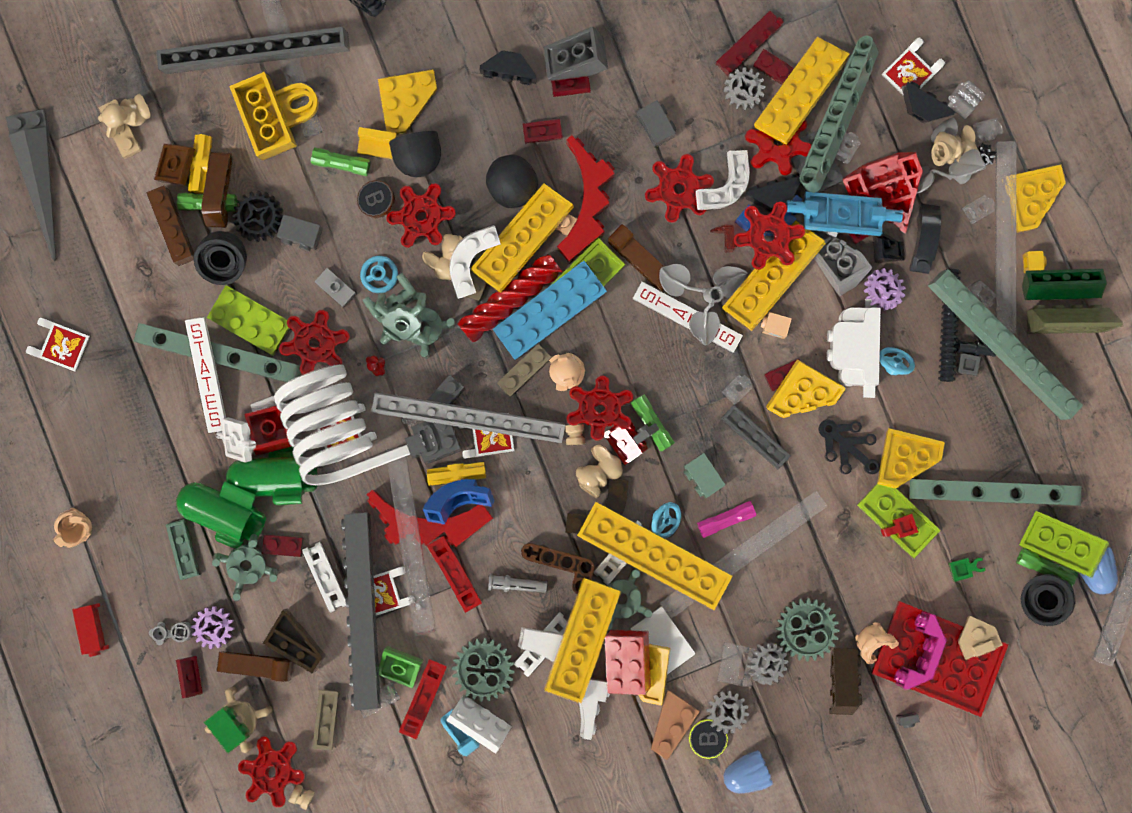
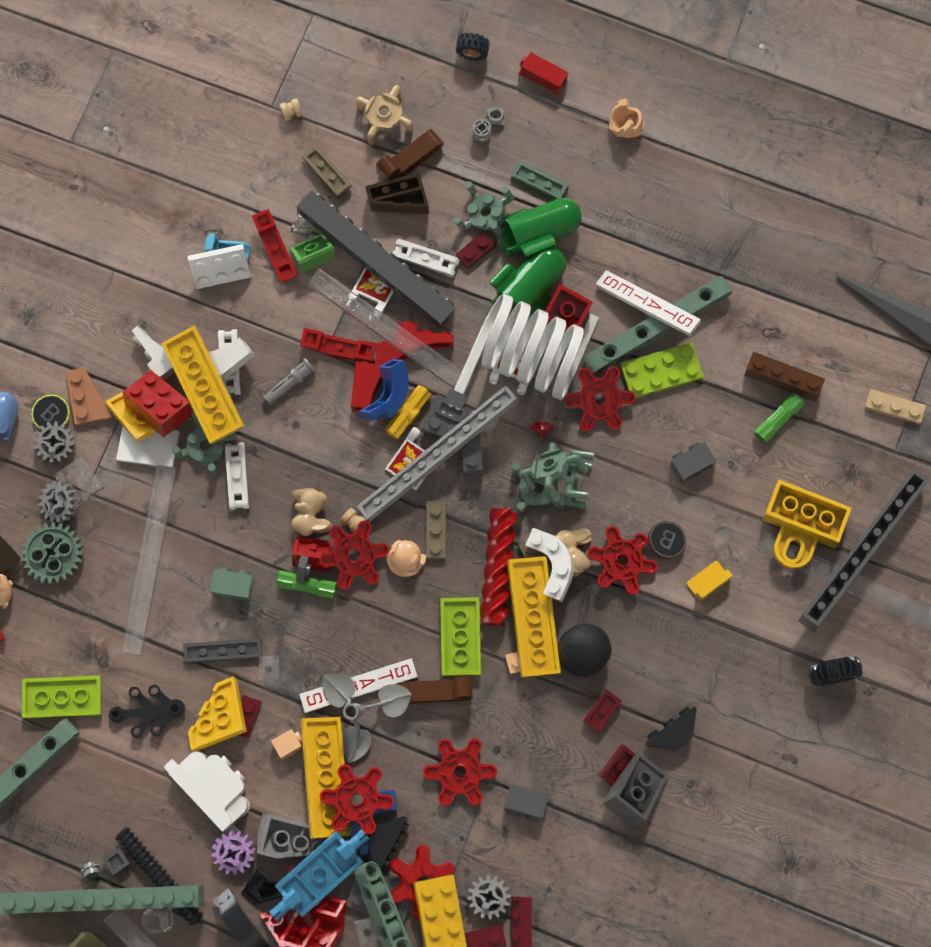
camera: 135 degrees right, 10 degrees down
(61, 346) = (767, 227): flag -> none
(118, 704) = (472, 46): none -> black wheel
(130, 112) = (898, 422): tan animal -> none
(174, 164) = (829, 419): reddish brown tile -> none
(189, 676) = (446, 108): dark red plate -> none
(200, 163) = (813, 438): yellow piece -> none
(215, 634) = (459, 147): lavender gear -> none
(216, 190) = (782, 431): reddish brown beam -> none
(220, 258) = (724, 386): black piece -> none
(227, 728) = (383, 98): green brick -> none
(236, 439) = (579, 280): white plate -> none
(251, 219) = (740, 444): black gear -> none
(259, 772) = (327, 93): red plate -> none
(335, 287) = (628, 452): light grey plate -> none
(343, 162) = (718, 541): bright green axle -> none
(366, 279) = (608, 485): medium azure piece -> none
(405, 98) = (724, 633): yellow plate -> none
(416, 153) = (670, 597): black piece -> none
(482, 687) = (265, 316): sand green gear -> none
(549, 310) = (460, 588): dark azure plate -> none
(556, 563) = (274, 422): reddish brown beam -> none
(594, 201) = (530, 716): red arch -> none
(615, 501) = (273, 486): dark brown plate -> none
(654, 556) = (210, 493): yellow plate -> none
(662, 519) = (230, 525): medium azure piece -> none
(728, 230) = (394, 777): clear red plate -> none
(734, 187) = (420, 810): white plate -> none
(738, 514) = (185, 572): dark pink axle -> none
(894, 364) = (170, 802): medium azure piece -> none
(902, 527) = (51, 691): red plate -> none
(907, 457) = (96, 745): yellow plate -> none
(975, 348) = (123, 879): black pin -> none
(991, 376) = (90, 870): none -> light grey plate

